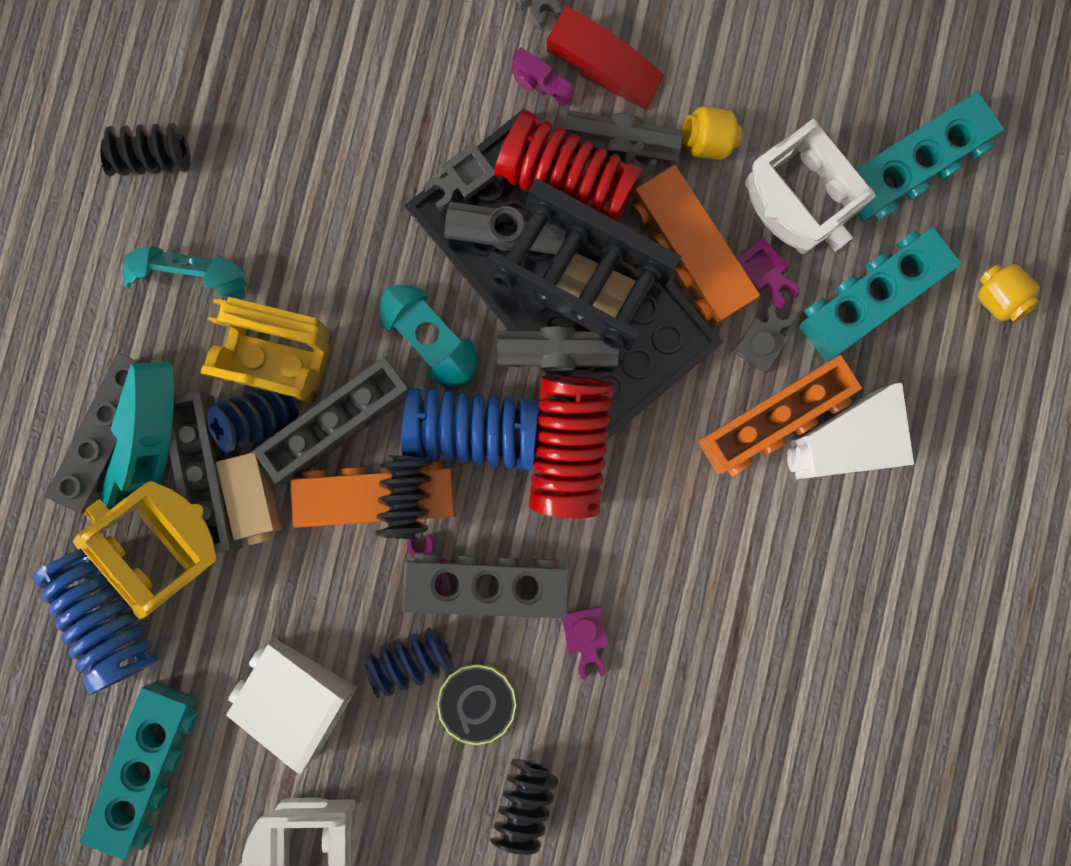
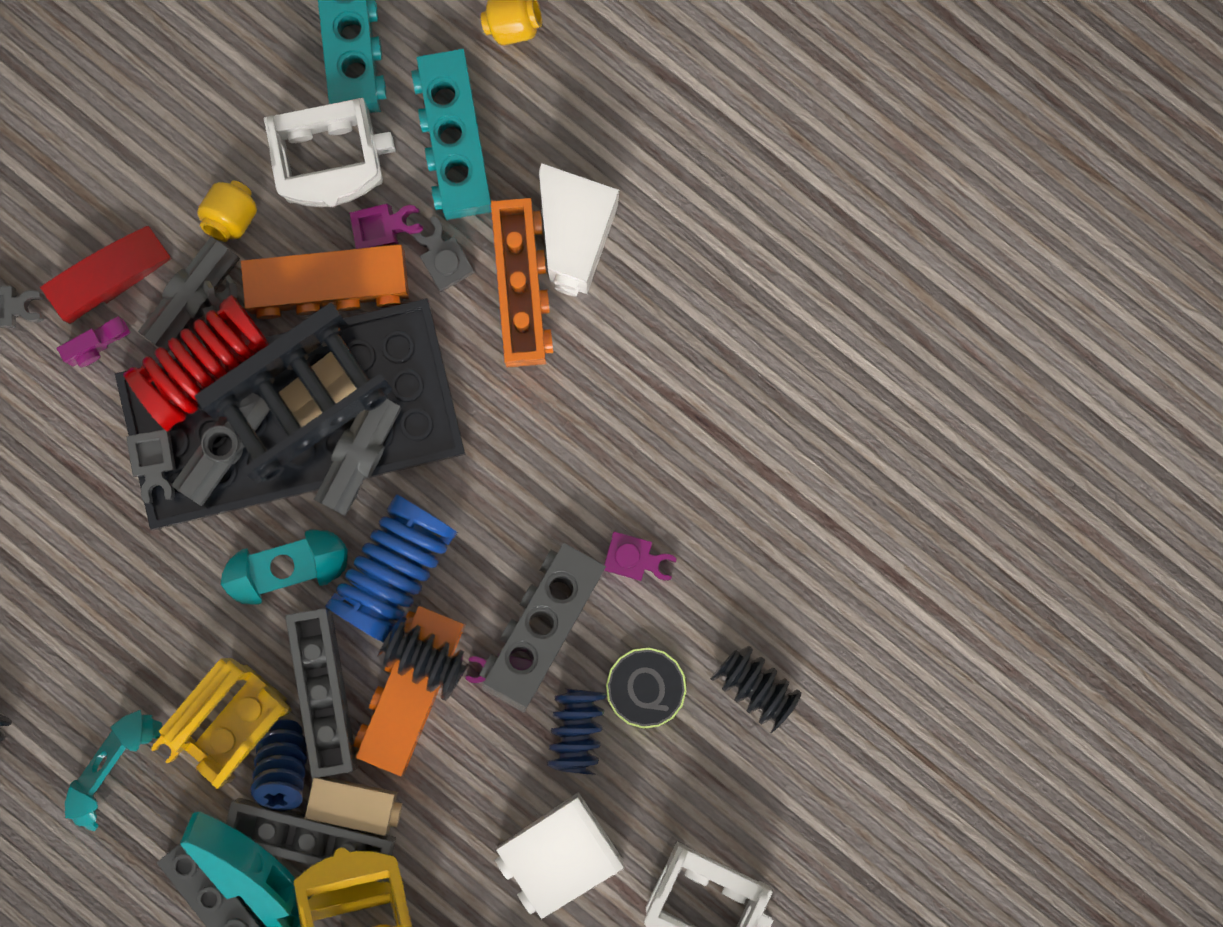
camera: 70 degrees left, 0 degrees up
(559, 453) = (452, 501): red piece -> none

